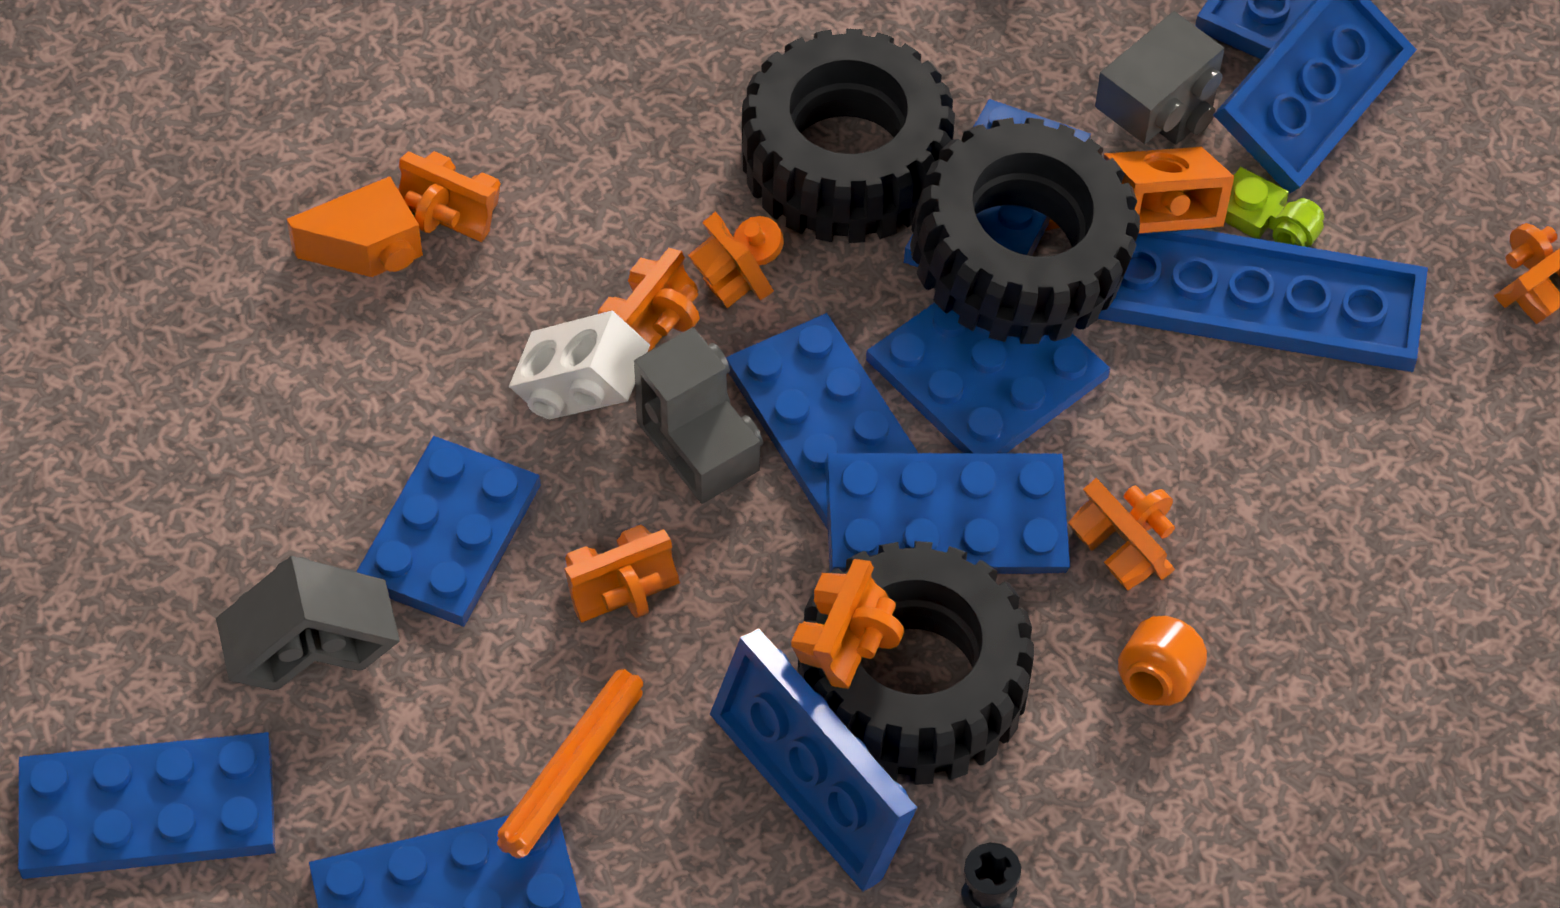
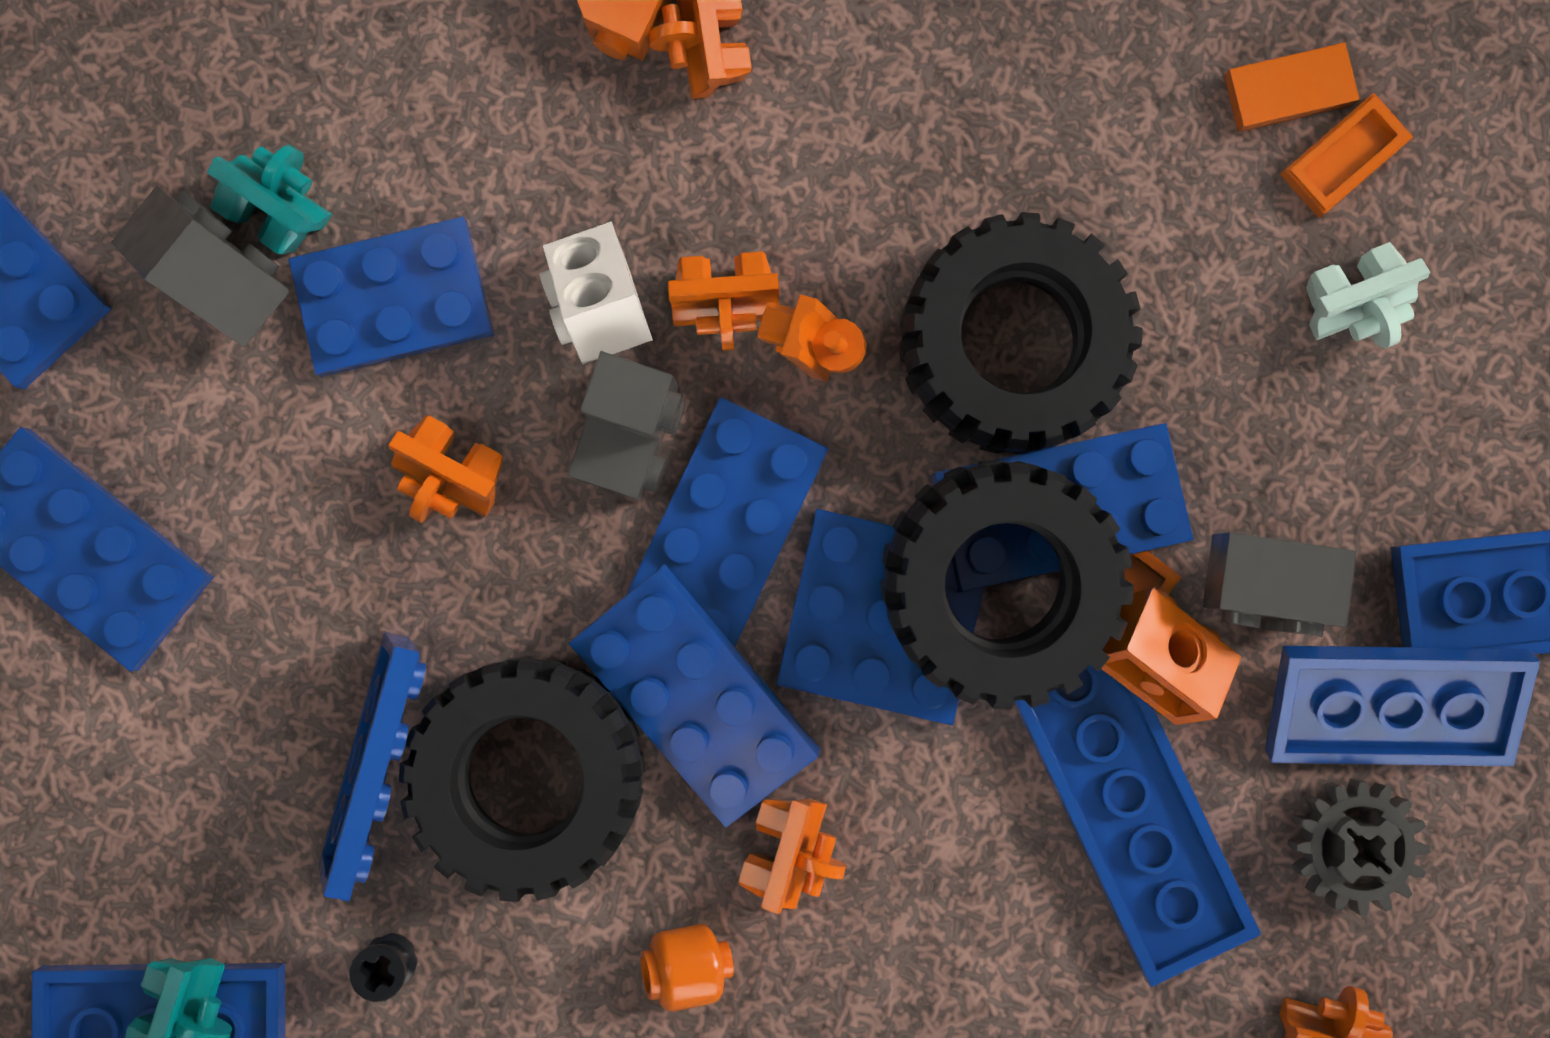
camera: 50 degrees right, 30 degrees up
(320, 545) = (273, 186): none -> teal hips
(569, 764) = (238, 566): orange axle -> none
(855, 625) = (467, 741): orange hips -> none
(1260, 205) = (1227, 738): lime plate -> none
(1405, 172) = (1384, 836): none -> dark grey gear

